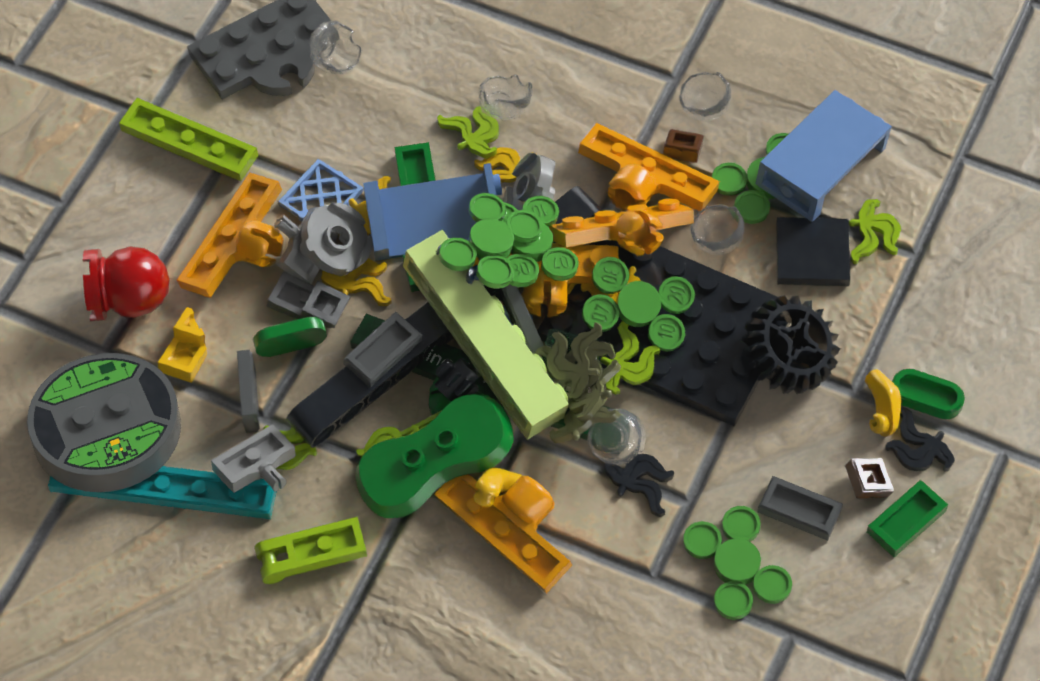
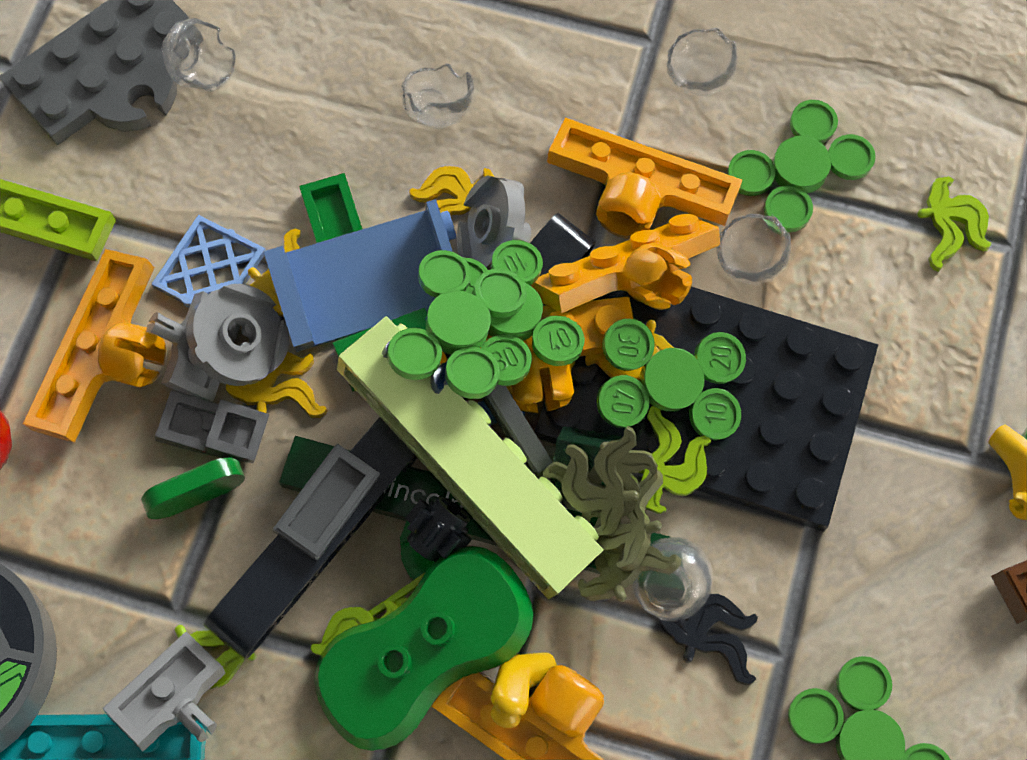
camera: 10 degrees left, 10 degrees up
(186, 350) = (50, 526): yellow slope -> none
(248, 391) = (144, 581): dark grey tile -> none
(476, 141) = (406, 163): lime piece -> none
(683, 145) = (684, 135): reddish brown tile -> none
(776, 347) = (875, 419): black gear -> none
(800, 508) = (940, 646): dark grey tile -> none
(812, 251) = (881, 262): black tile -> none
(821, 153) = (872, 126): medium blue panel -> none

